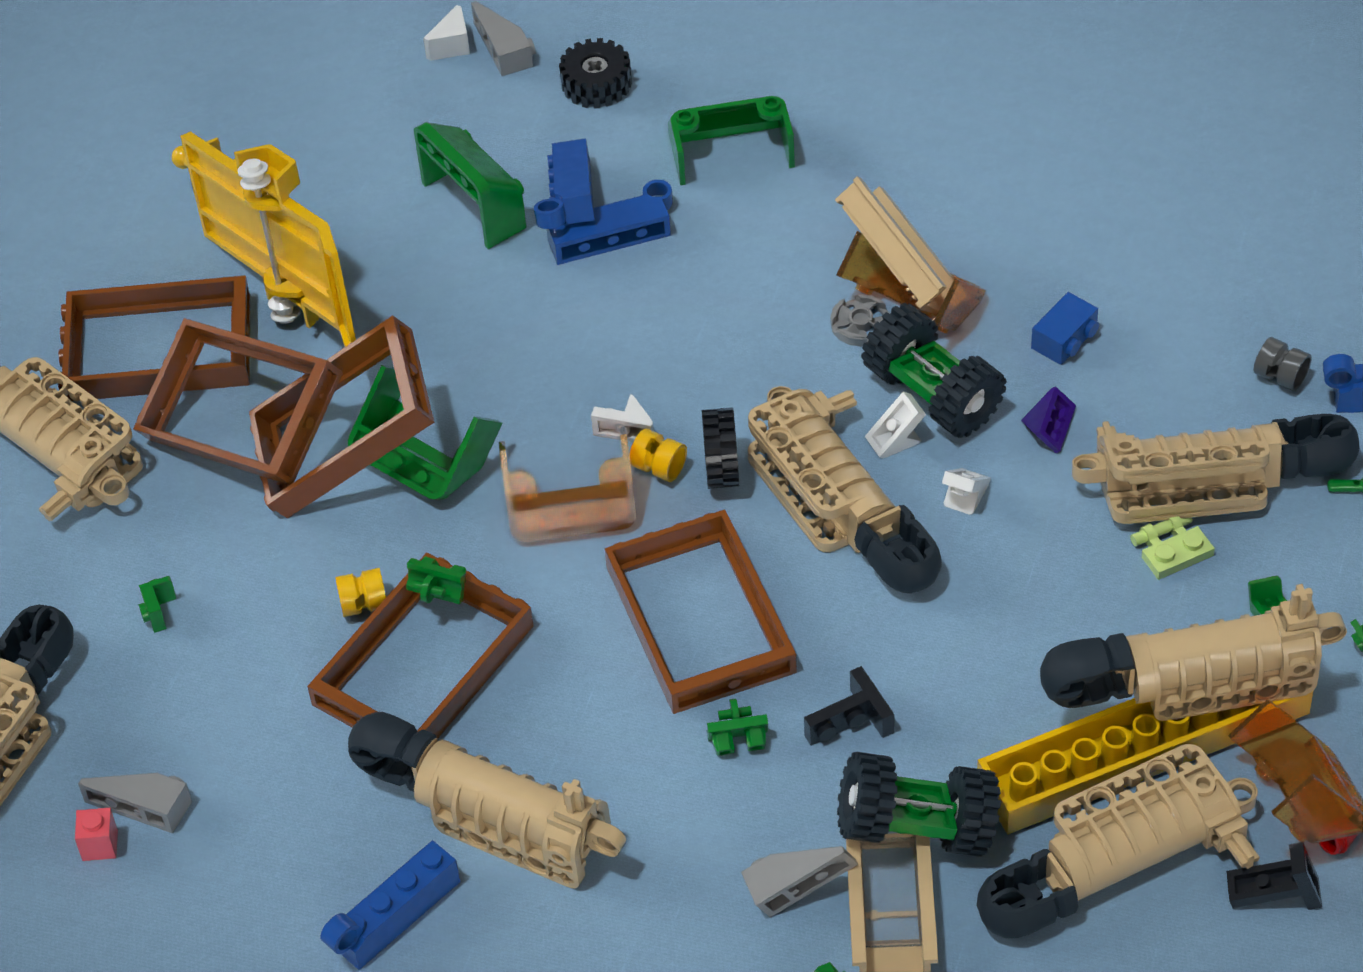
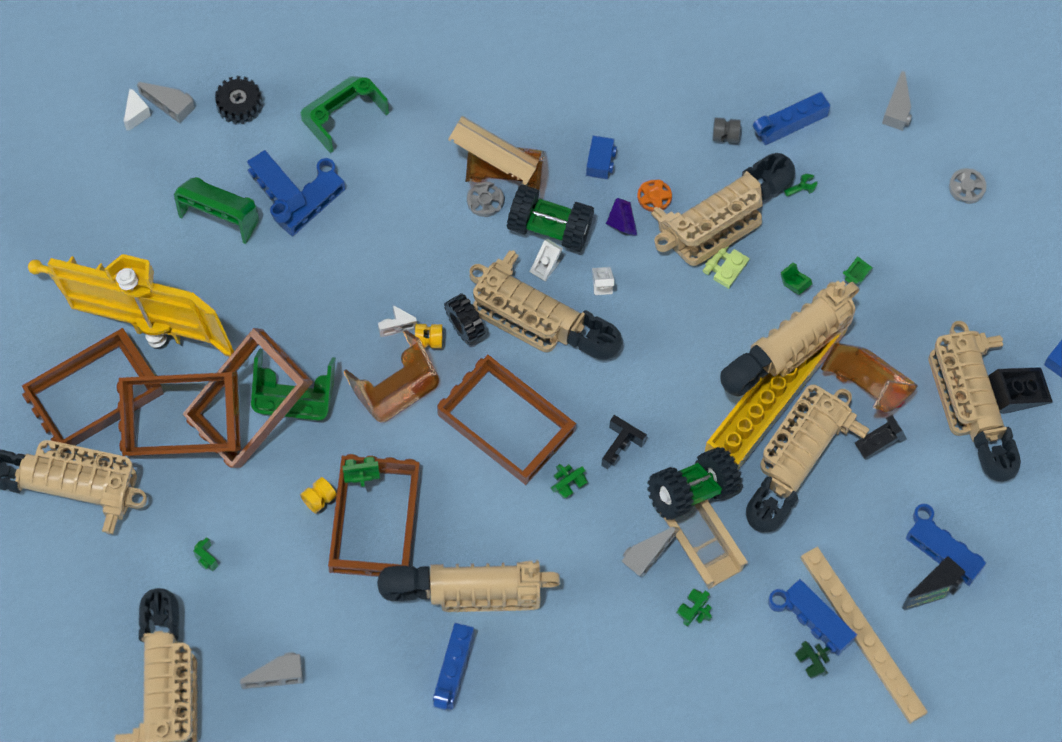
camera: 35 degrees left, 15 degrees up
(96, 834) = (266, 705): coral brick -> none
(1119, 408) = (654, 195): none -> orange wheel

